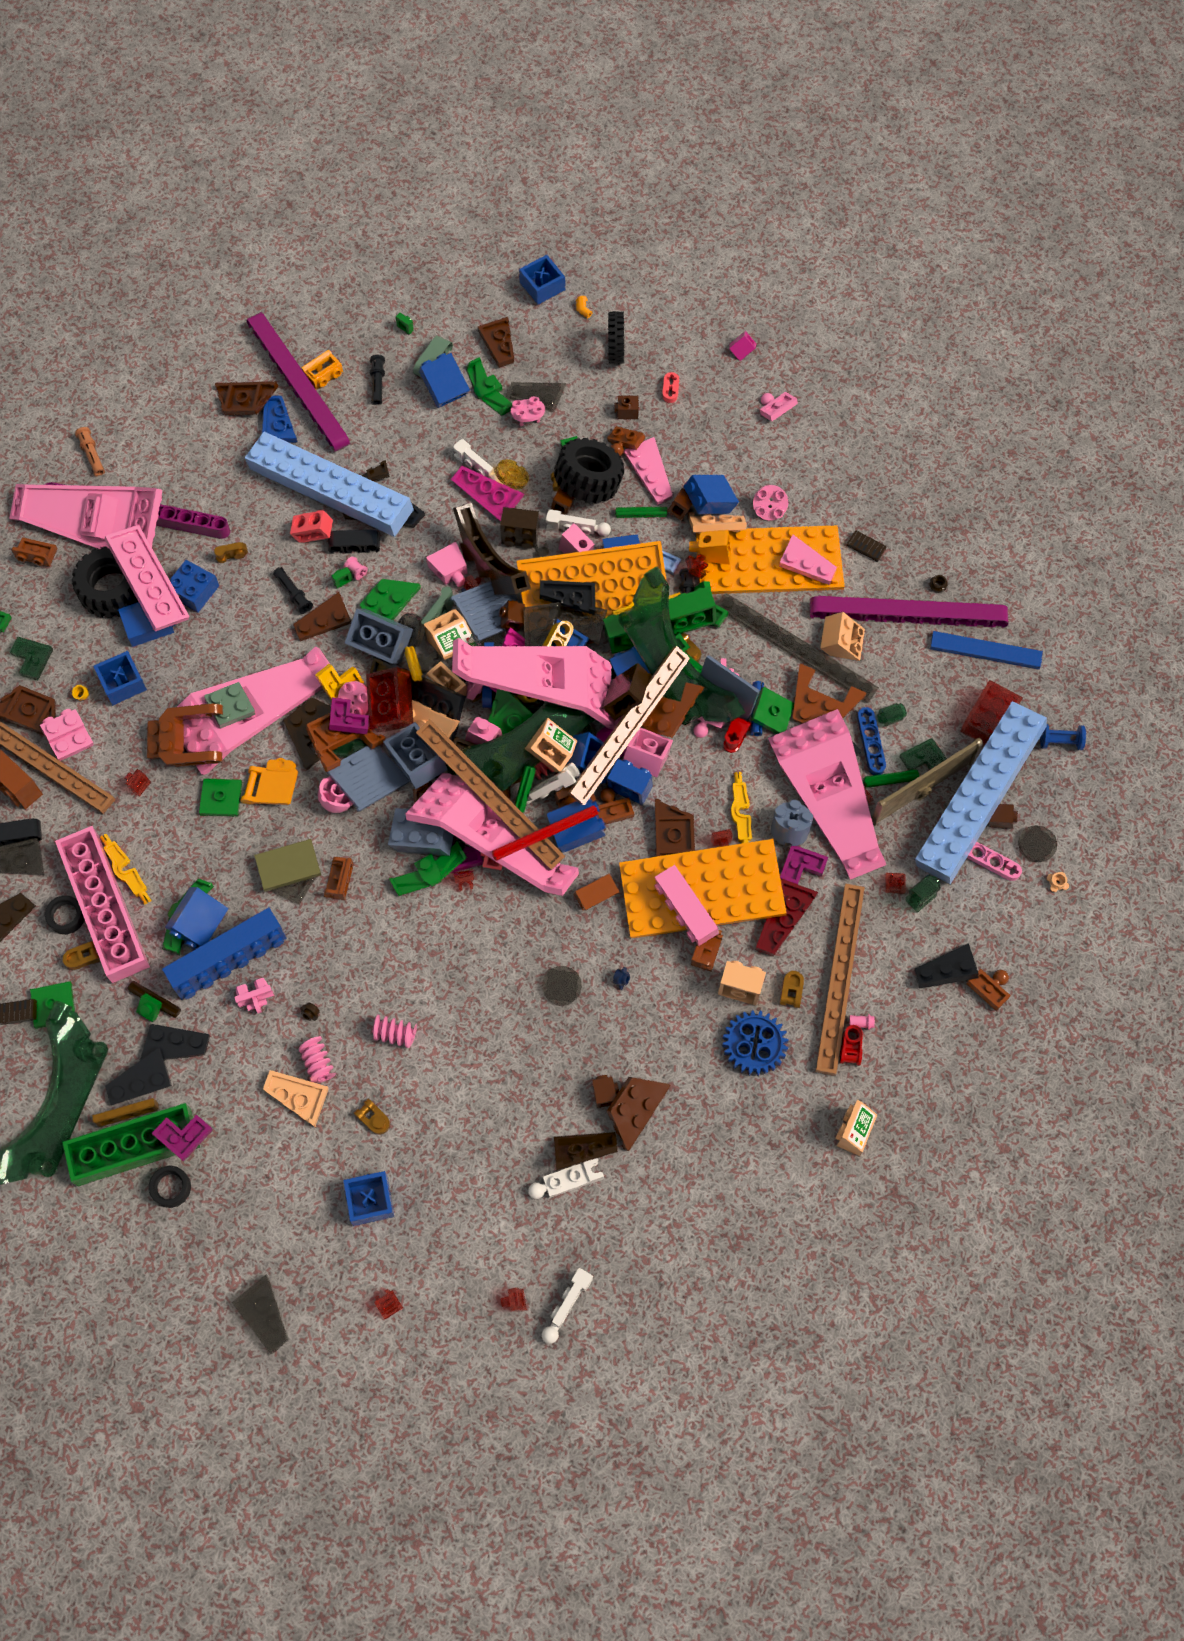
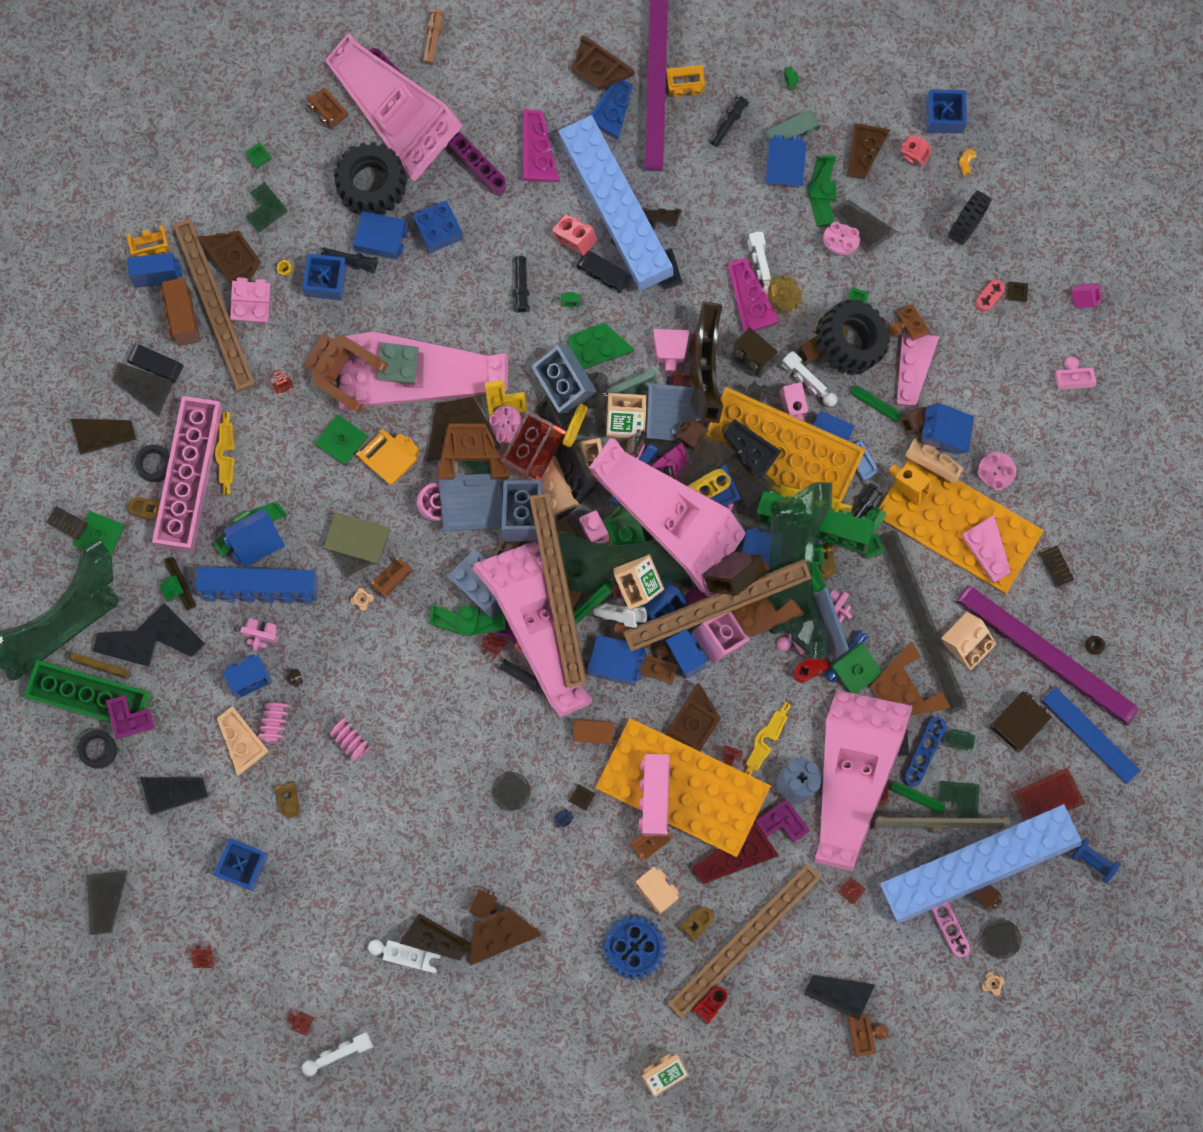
camera: 30 degrees right, 10 degrees up
(141, 650) = (358, 261): none -> black pin
(146, 578) = (400, 200): bright pink plate -> none
(234, 550) = (497, 216): pearl gold plate -> none
(236, 486) = (537, 150): none -> dark pink wing
(262, 1181) = (169, 793): none -> black wing
(267, 1034) = (247, 676): none -> blue brick
(321, 908) = (362, 594): none -> light nougat plate
(324, 618) = (531, 329): reddish brown wing -> none
(343, 720) = (482, 439): magenta plate -> none
(355, 568) = (588, 298): bright pink bush -> none
(519, 885) = (522, 675): none -> black pin
(539, 318) = (916, 150): none -> coral brick
(544, 833) = (579, 655): red axle -> none
(624, 952) = (582, 797): none -> dark brown tile
(627, 407) = (934, 291): reddish brown brick -> none
(689, 373) = (1018, 291): none -> dark brown tile
(696, 565) = (885, 490): clear red tile -> none
(862, 1021) = (735, 989): bright pink pin -> none
(923, 892) = (866, 917): clear green brick -> none
(927, 672) = (1021, 721): none -> dark brown brick

